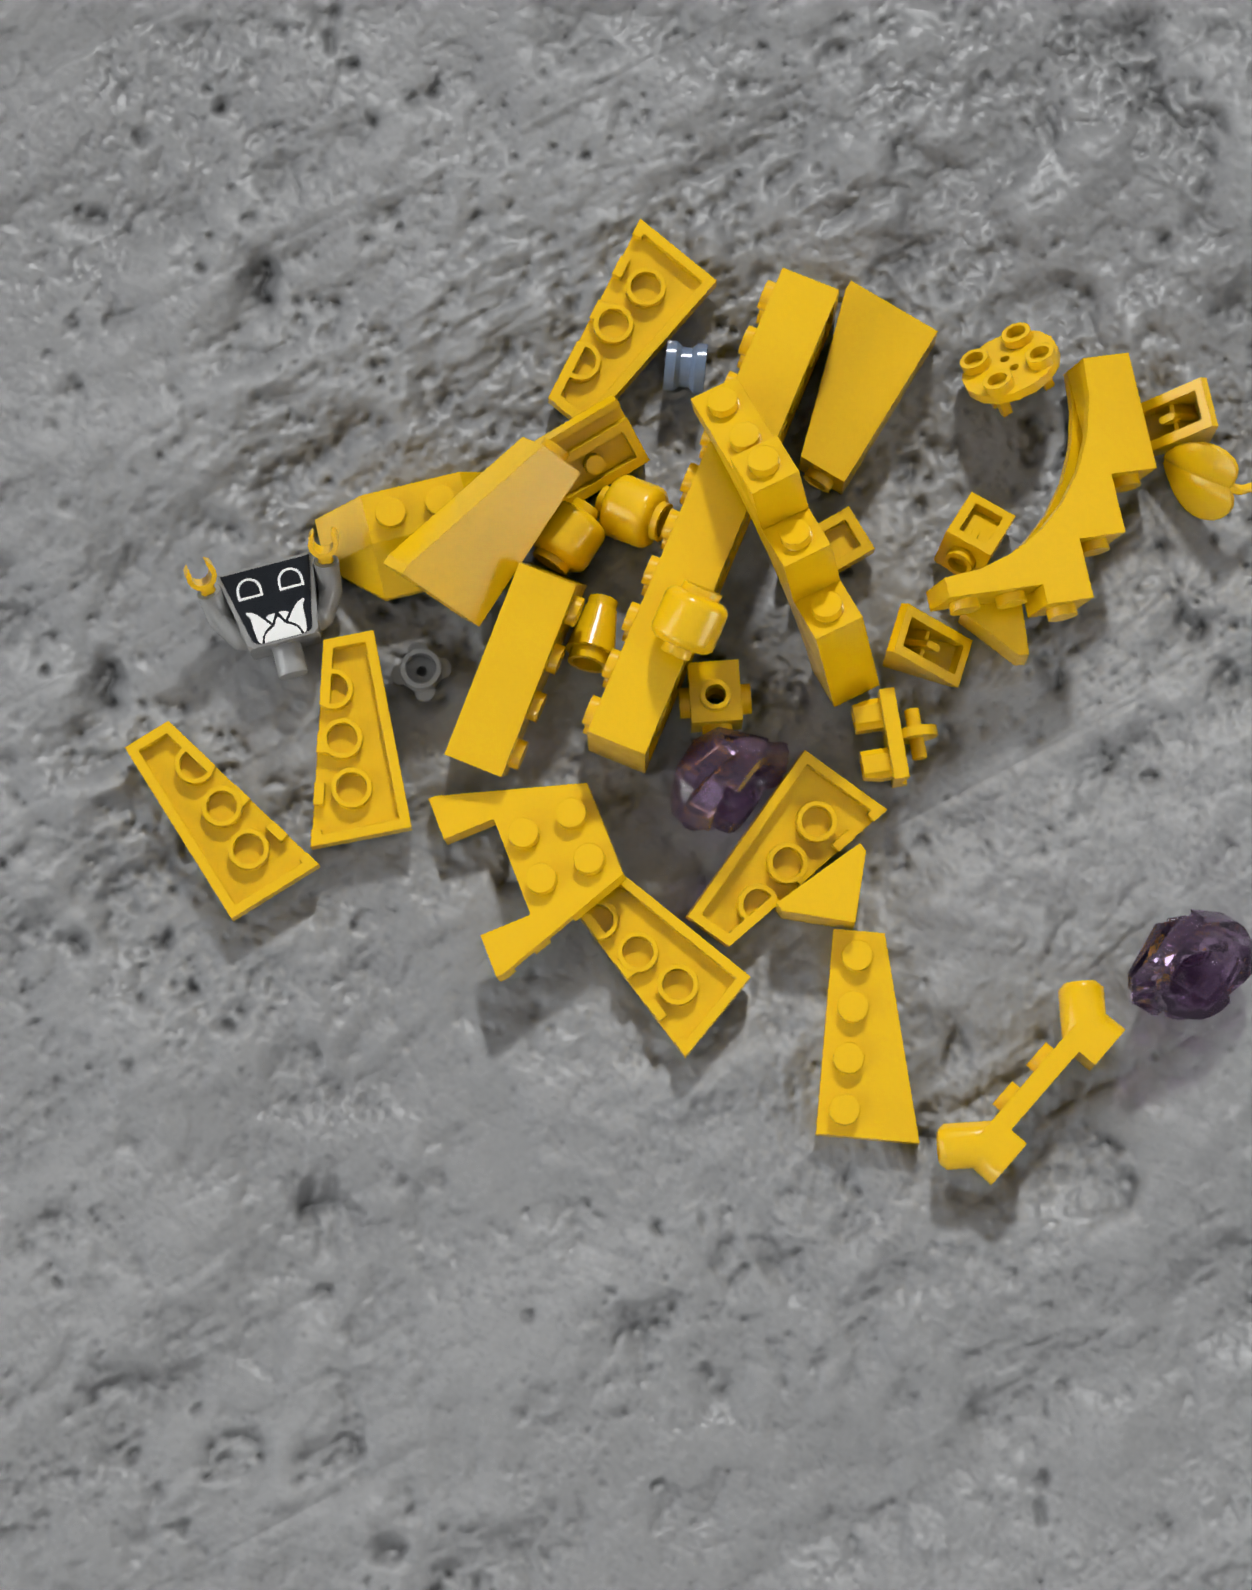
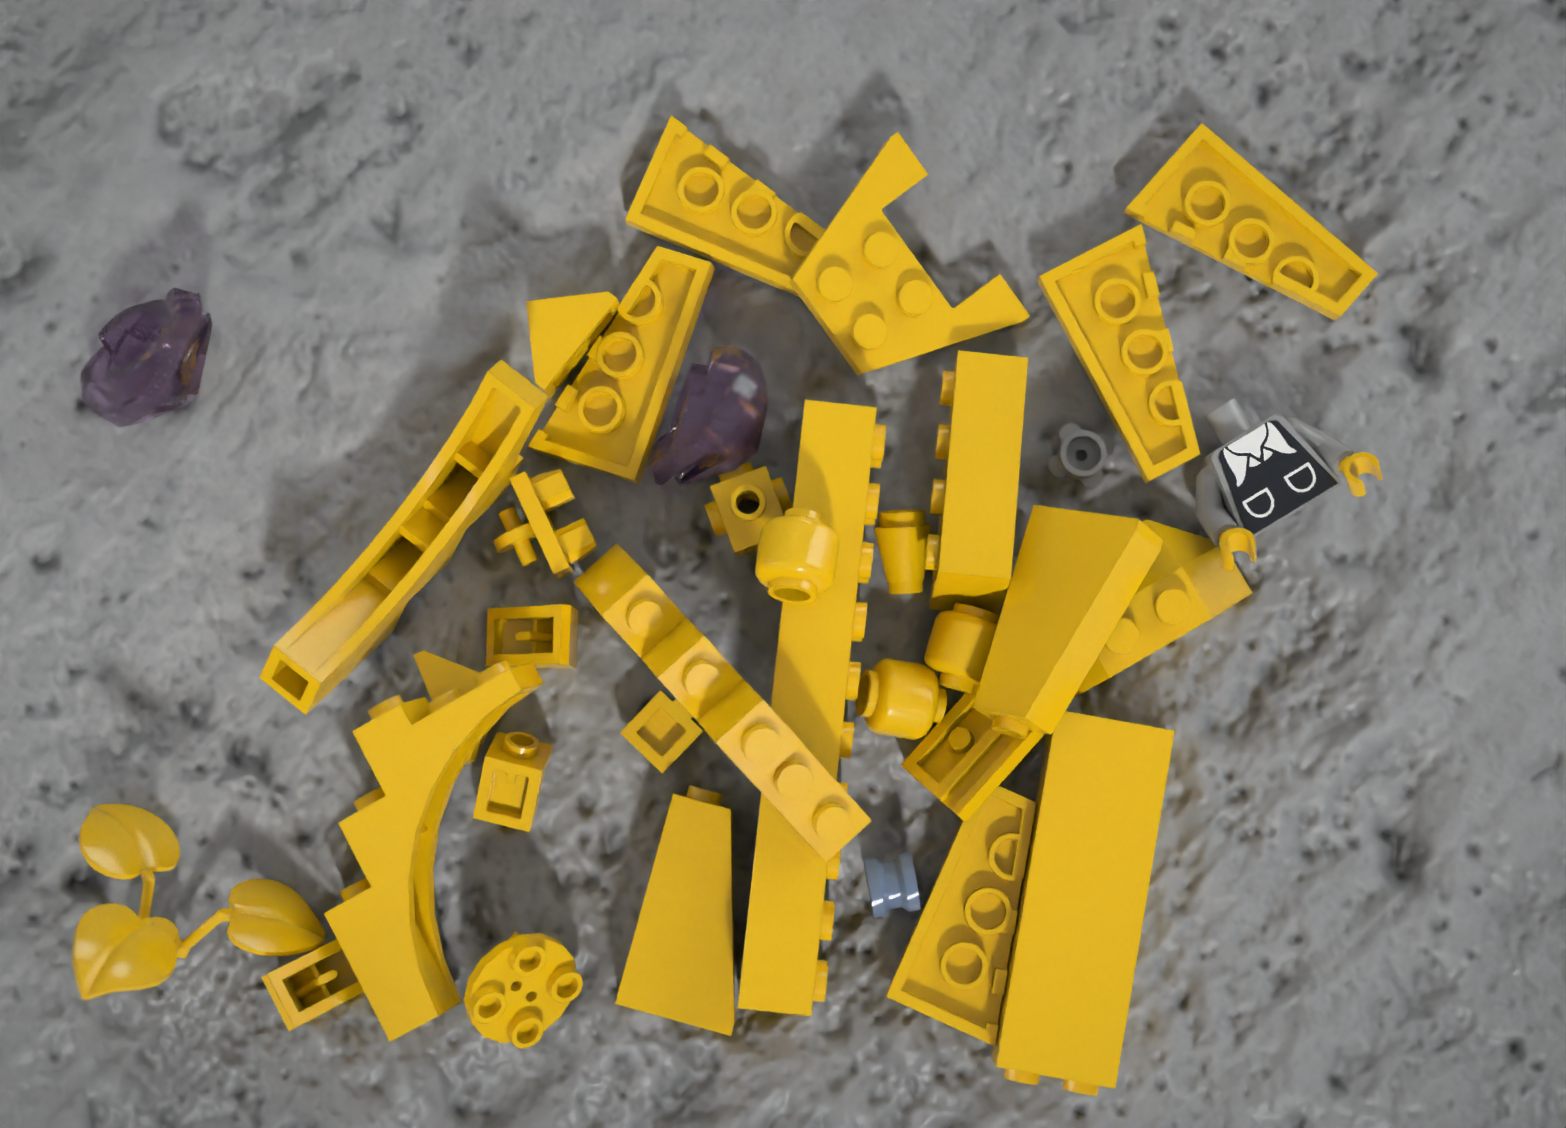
camera: 165 degrees right, 5 degrees up
(533, 311) = (1082, 902): none -> yellow brick
(863, 1053) = (483, 175): yellow wing -> none
(992, 1144) = (317, 118): yellow plate -> none
(1011, 739) = (412, 545): none -> yellow arch

